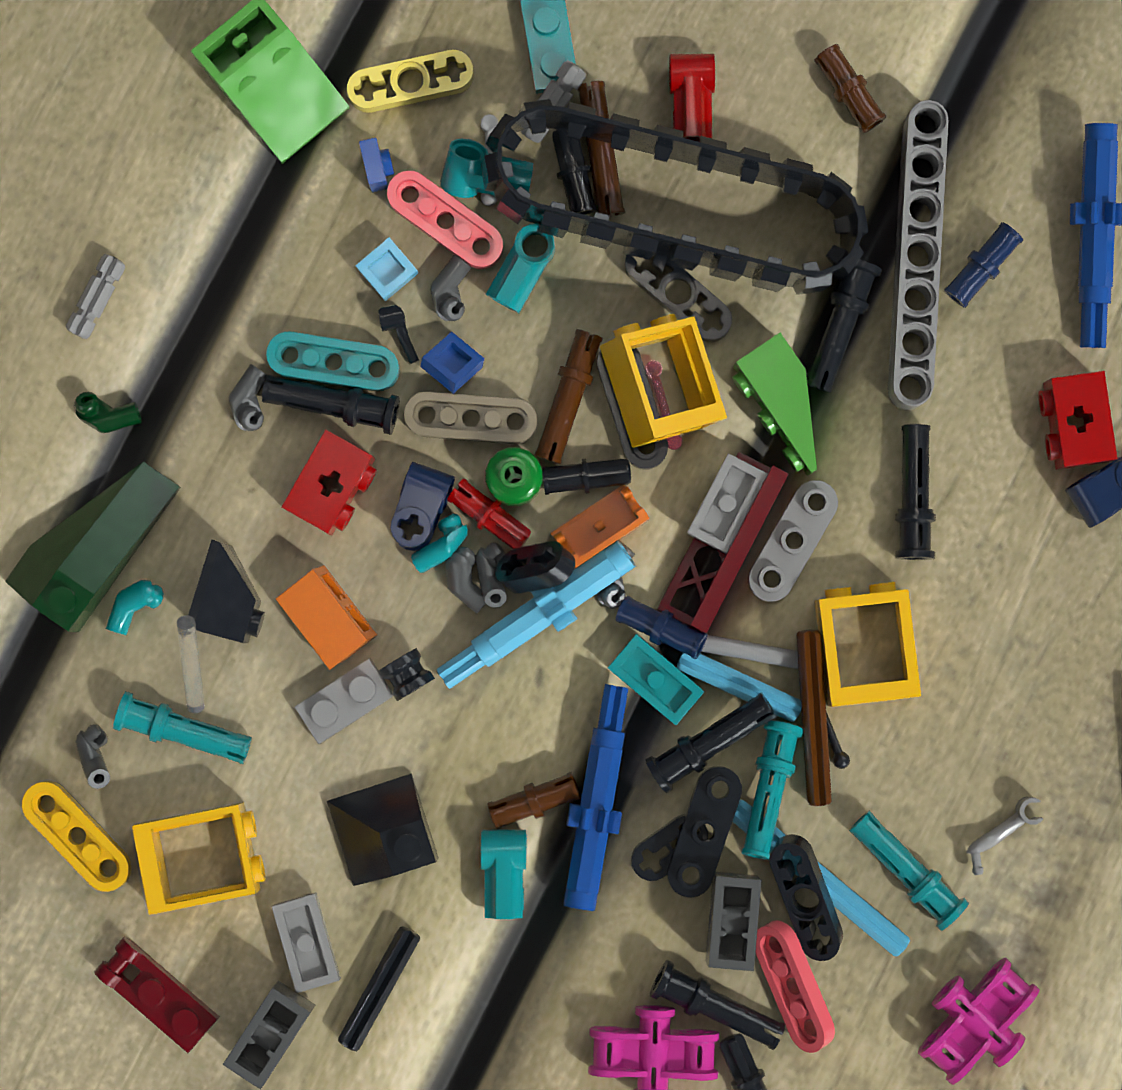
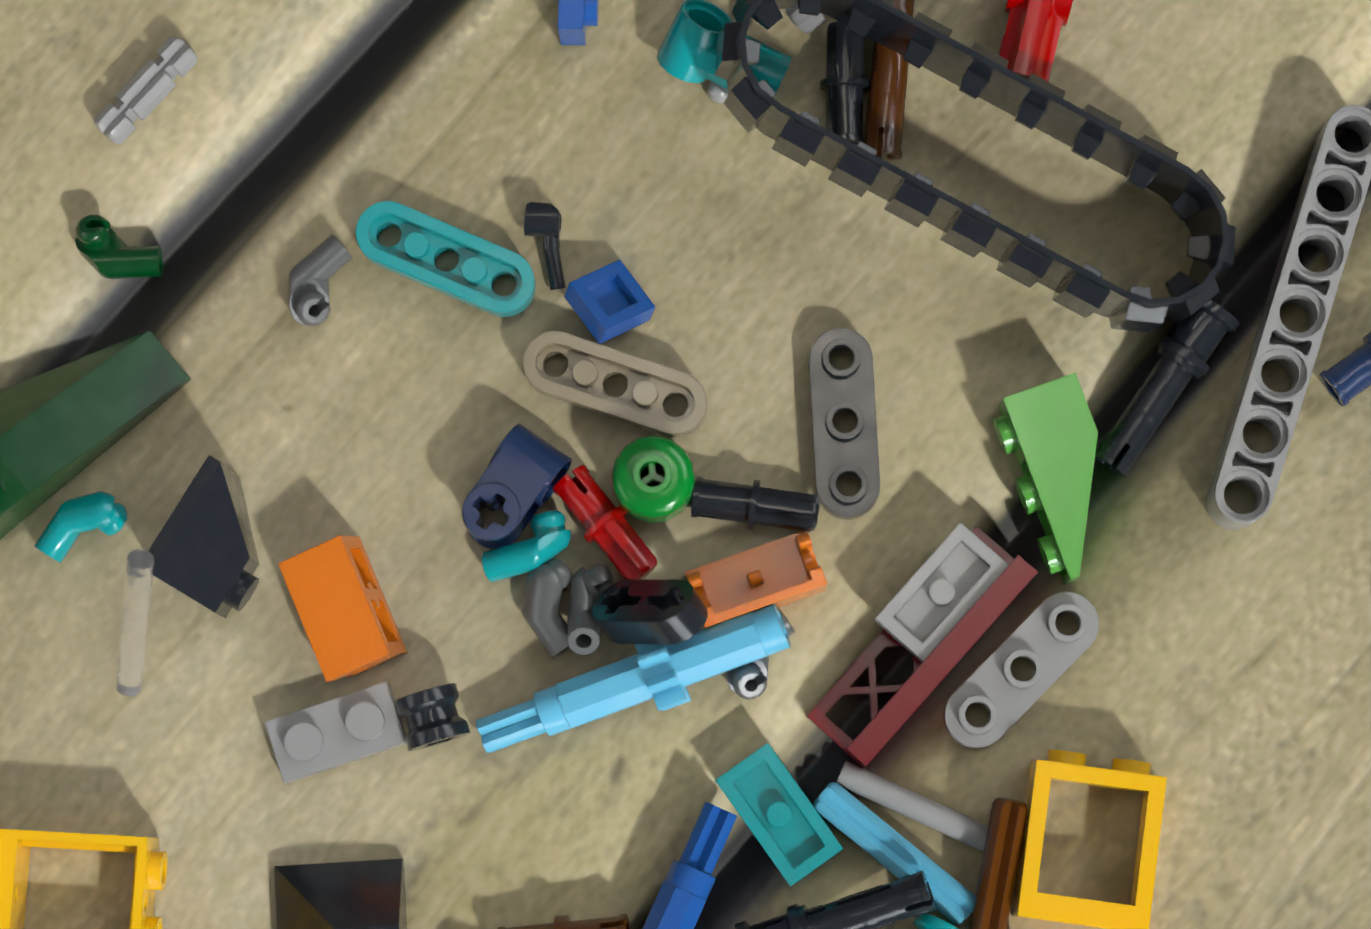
camera: 20 degrees right, 5 degrees down
(162, 723) = (77, 699): teal pin -> none
(328, 458) = (401, 391): red brick -> none
(350, 405) = (453, 325): black pin -> none
(387, 269) = (553, 152): medium azure plate -> none
(434, 203) = (641, 80): coral plate -> none
(446, 292) = (627, 202): dark grey arm -> none
(520, 272) = (736, 200): teal piece -> none
(568, 396) = (758, 388): reddish brown pin -> none
(653, 371) = (885, 385): clear pink hinge -> none
(661, 627) = (805, 742): dark blue pin -> none
(692, 370) = (939, 389): yellow window -> none
(709, 306) = (986, 314): black beam -> none
(850, 88) = (1256, 65): reddish brown pin -> none
(915, 515) = (1203, 677): black pin -> none

